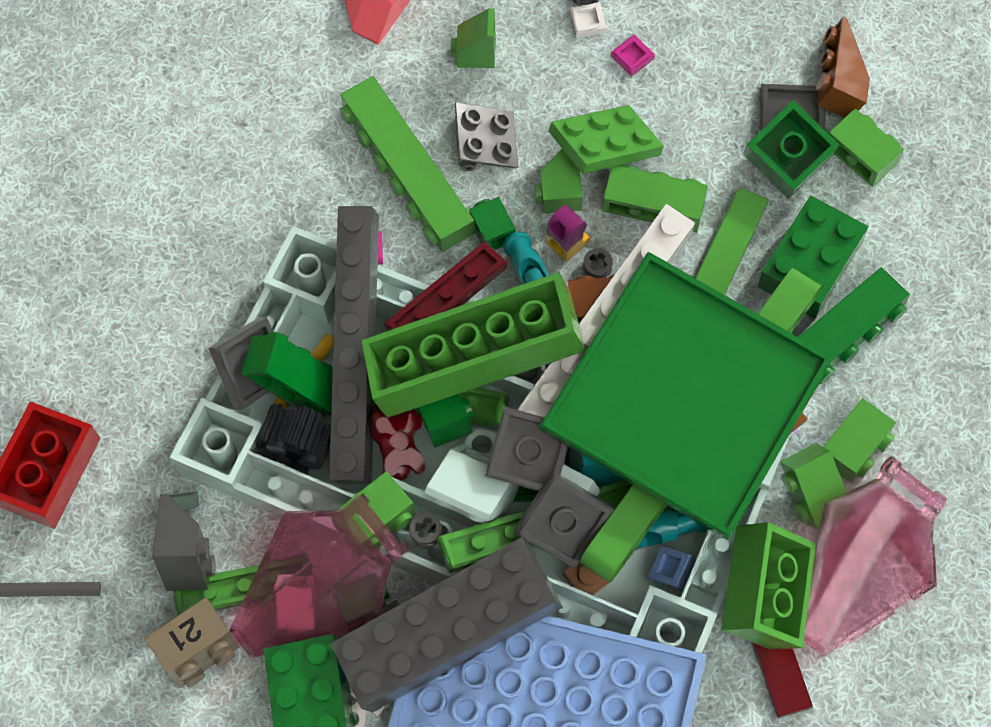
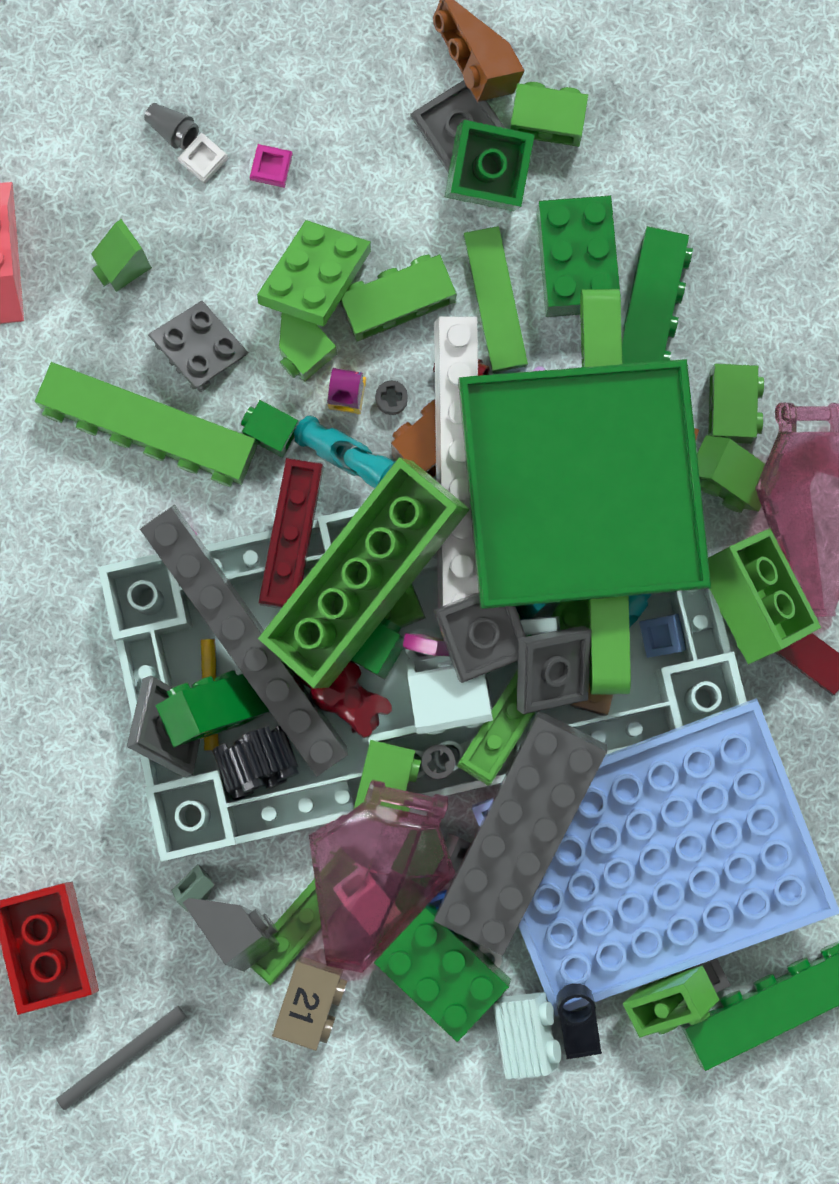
camera: 40 degrees left, 15 degrees up
(480, 435) = (425, 644): none -> dark pink tile

